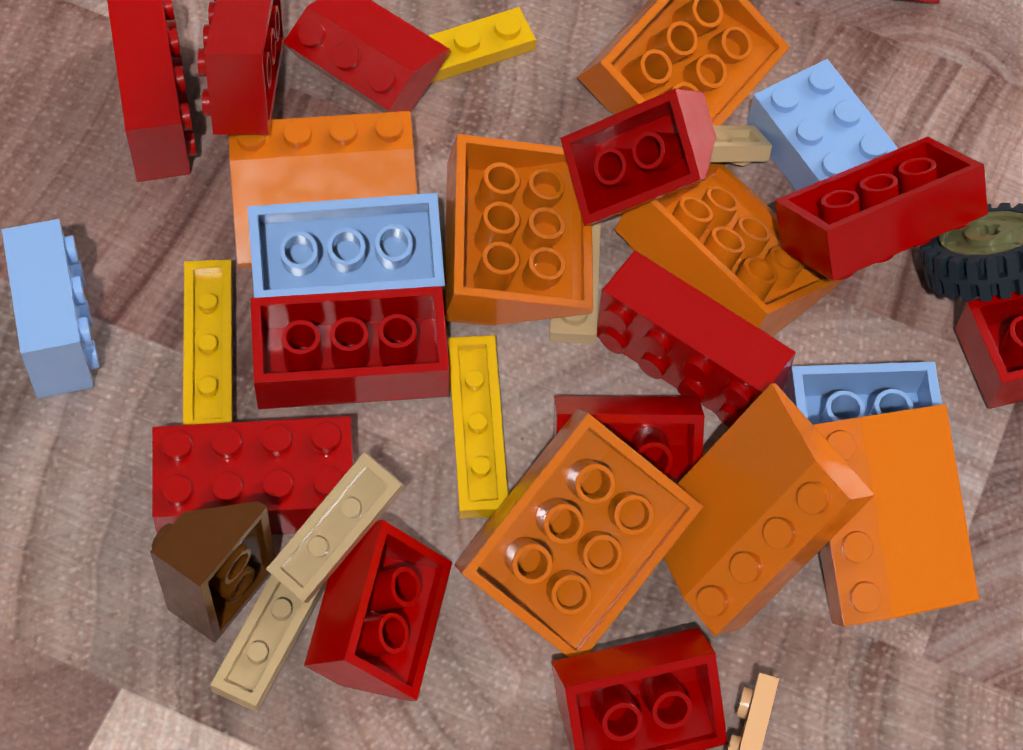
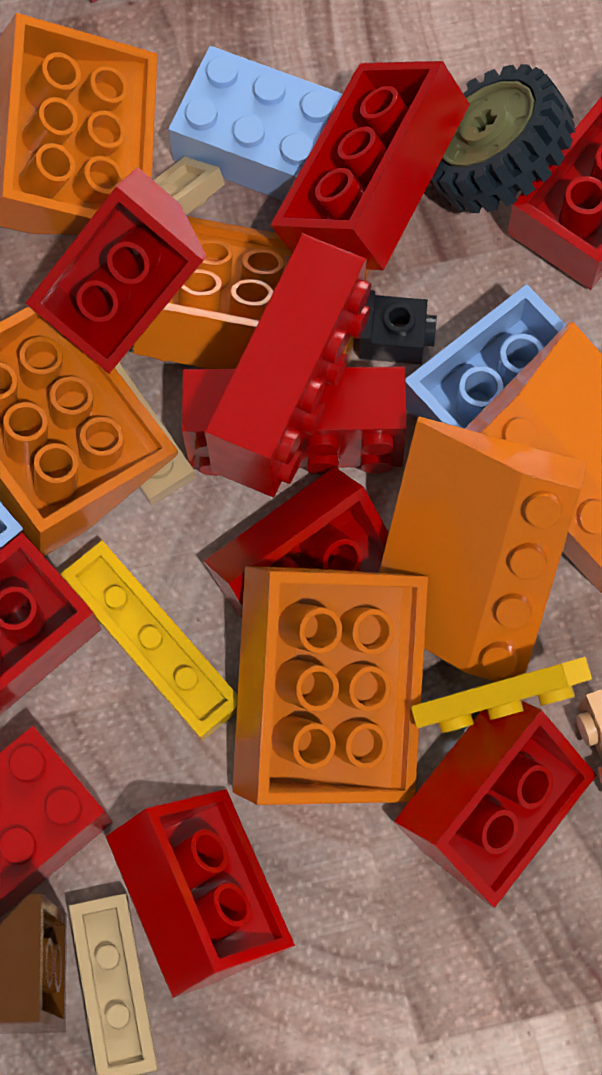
camera: 30 degrees left, 10 degrees up
(335, 527) = (106, 848): tan plate -> none
(695, 622) = (503, 697): none -> yellow plate
(706, 287) = (288, 367): none -> red brick
(817, 334) = (397, 344): none -> black brick

